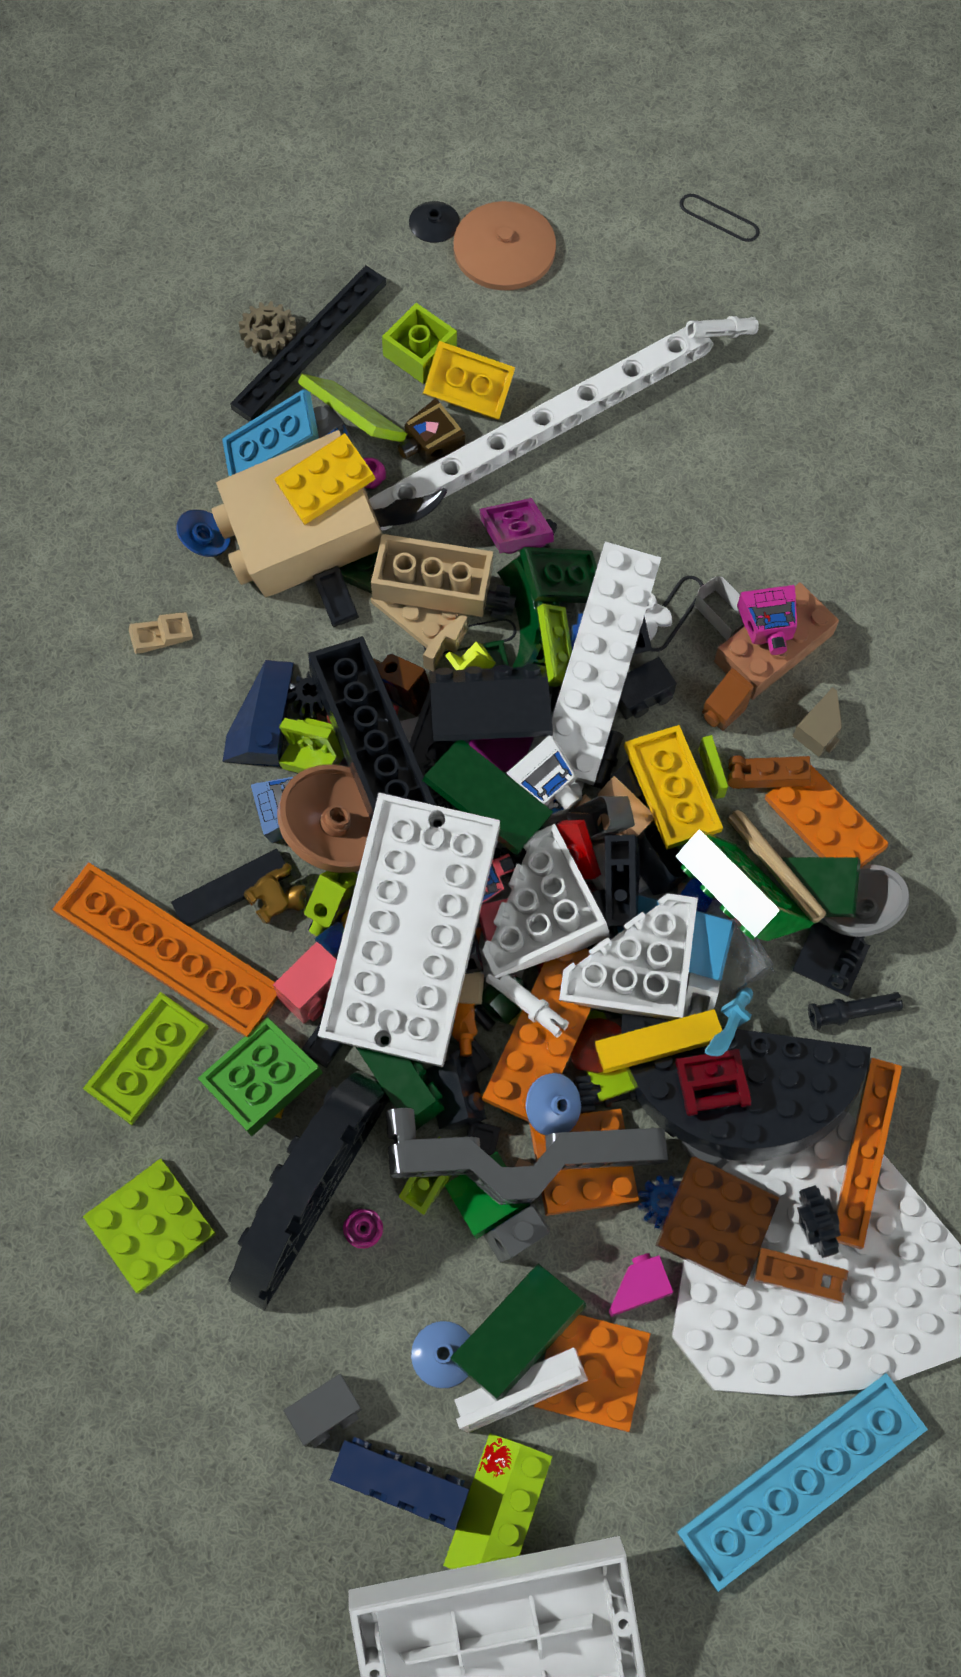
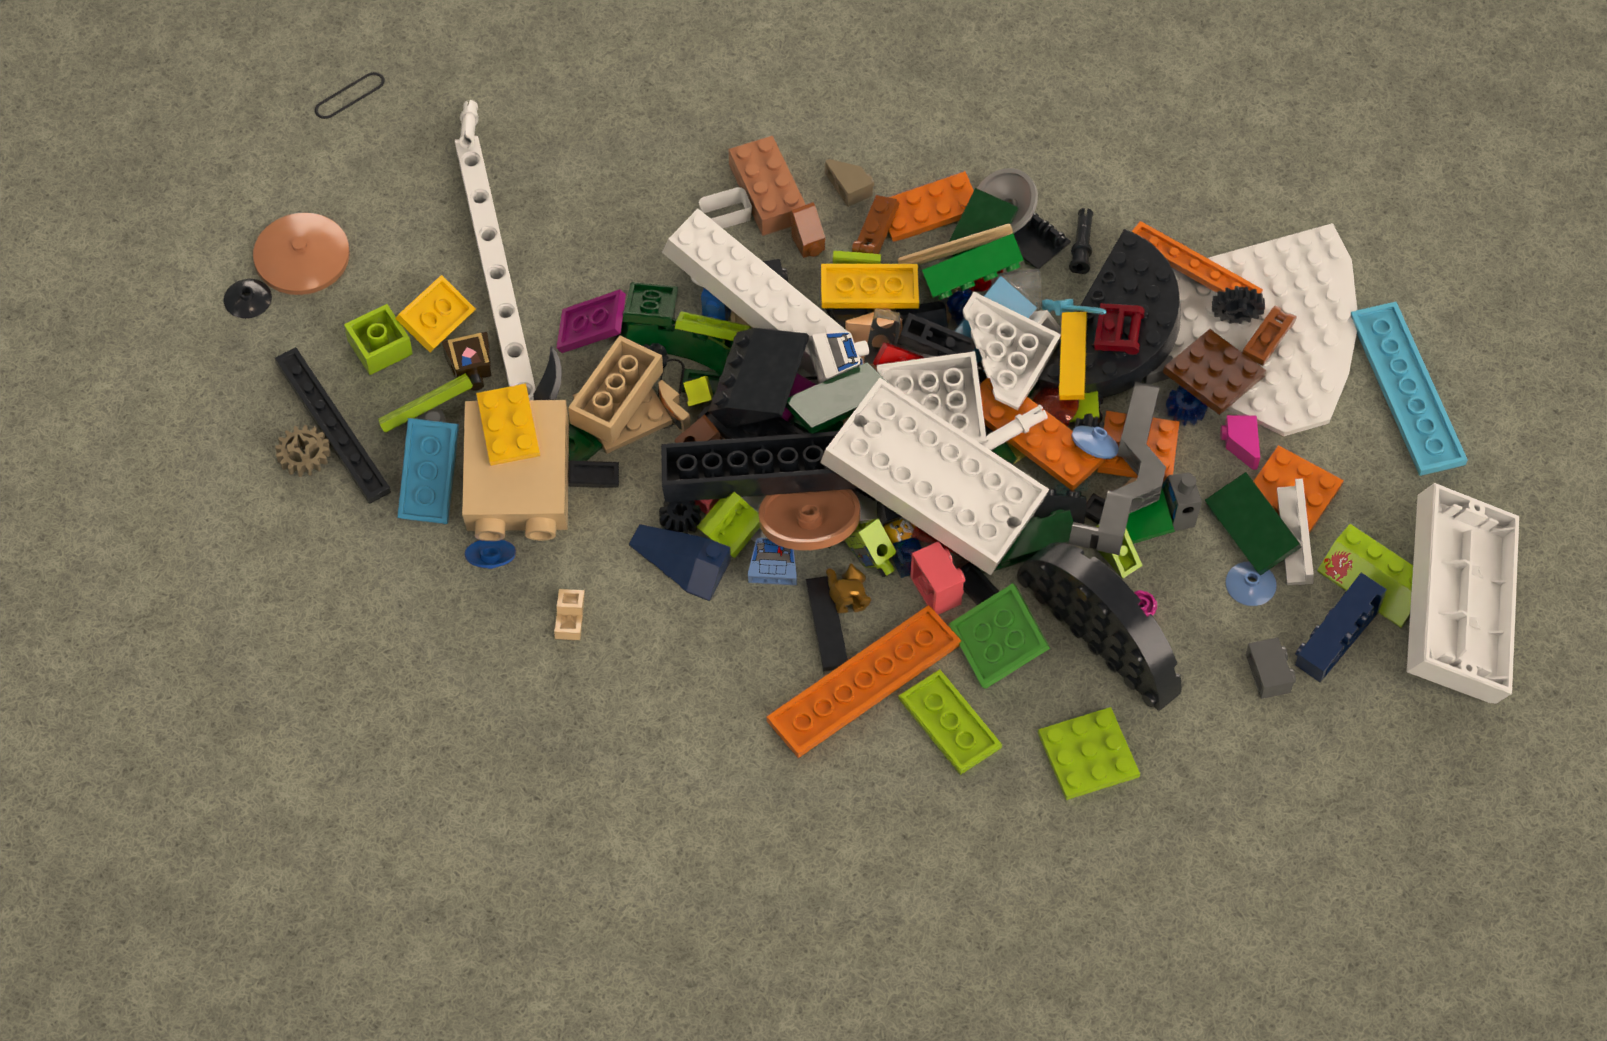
camera: 70 degrees left, 10 degrees down
(769, 616) = (757, 172): dark pink torso -> none

